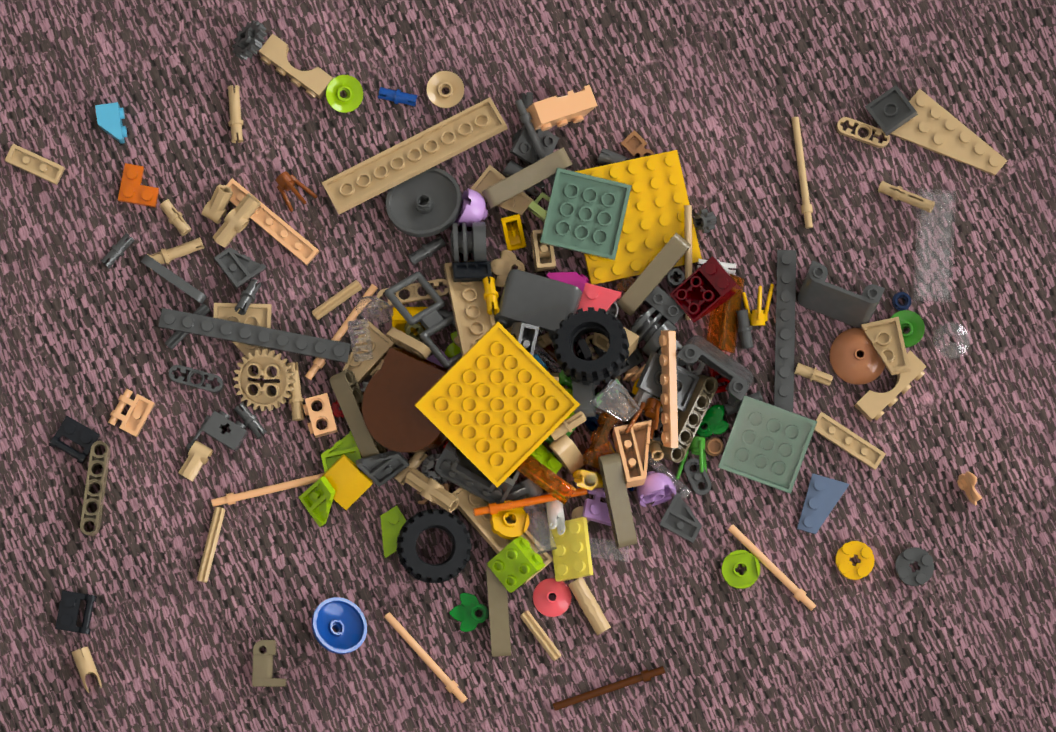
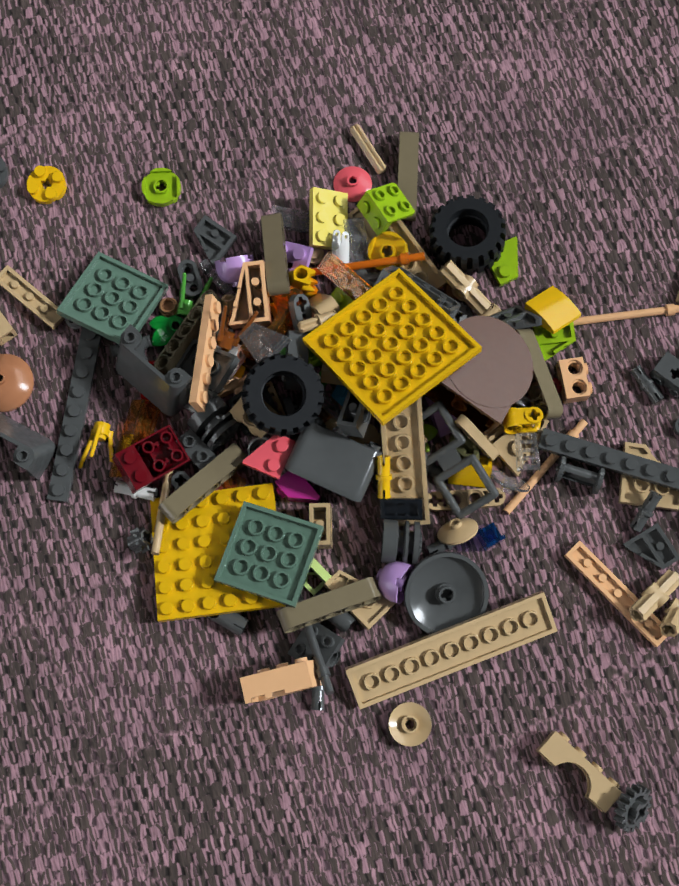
camera: 170 degrees left, 5 degrees down
(235, 114) = (650, 722): tan pin -> none
(263, 665) = (644, 148): dark tan piece -> none
(264, 362) = (632, 421): tan gear -> none
(287, 182) = (597, 634): dark orange plant -> none
(296, 397) = (598, 406): tan pin -> none
(310, 324) = (579, 475): none -> dark grey hose
(318, 500) = (580, 295): lime wing -> none
(336, 300) = (548, 500): tan axle -> none
(346, 619) = (557, 167): blue dish -> none
(353, 91) = (522, 721): lime dish -> none
(372, 364) = (521, 421): none -> yellow piece
(388, 259) = (489, 536): none -> clear blue panel
(397, 96) = (464, 723): blue pin -> none
(419, 258) = (457, 531): none -> tan dish
(451, 685) = (461, 113): light nougat bar -> none
(466, 612) = (439, 177): green plate -> none
(502, 266) = (365, 514): tan plate -> none
(513, 232) = (351, 551): yellow slope -> none
(588, 439) = (300, 312): none -> dark grey beam
(589, 605) = (315, 165): tan axle -> none
(635, 144) = (202, 635): medium nougat plate -> none
(644, 676) = (271, 102): reddish brown bar -> none
(744, 329) = (116, 421): dark grey pin -> none
(799, 594) = (108, 160): light nougat bar -> none
(806, 207) = (26, 543): tan bar -> none
(813, 374) = (53, 367): tan axle -> none
(819, 501) = (70, 243): sand blue wing -> none

